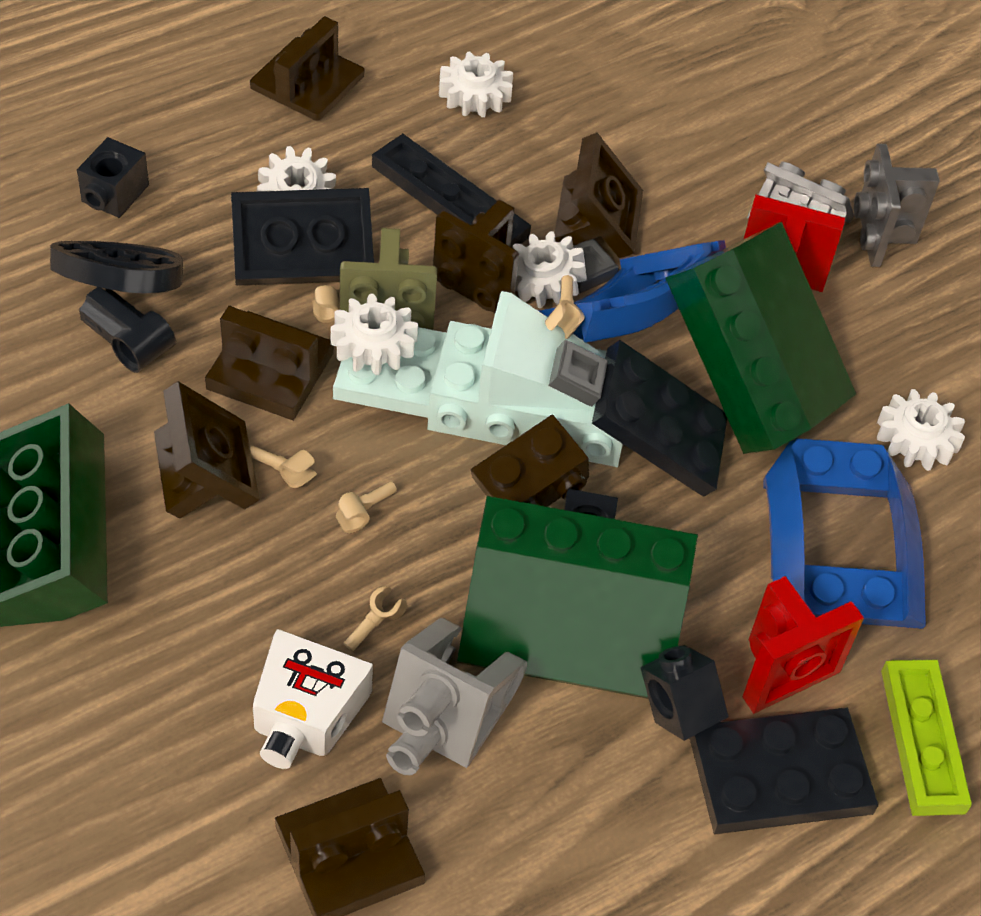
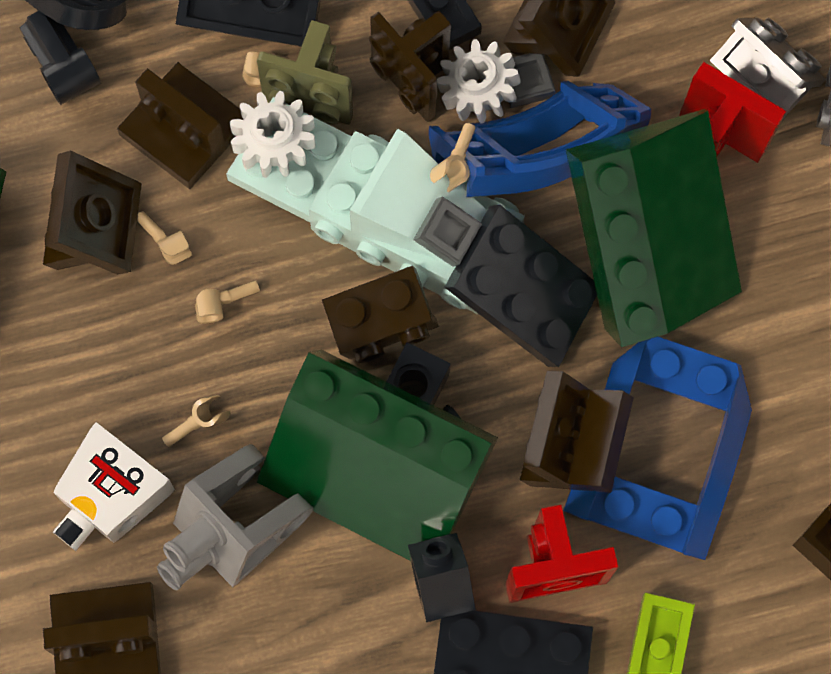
camera: 20 degrees right, 20 degrees up
(761, 534) = (576, 436): none -> dark brown bracket
(920, 429) = (779, 368): white gear -> none

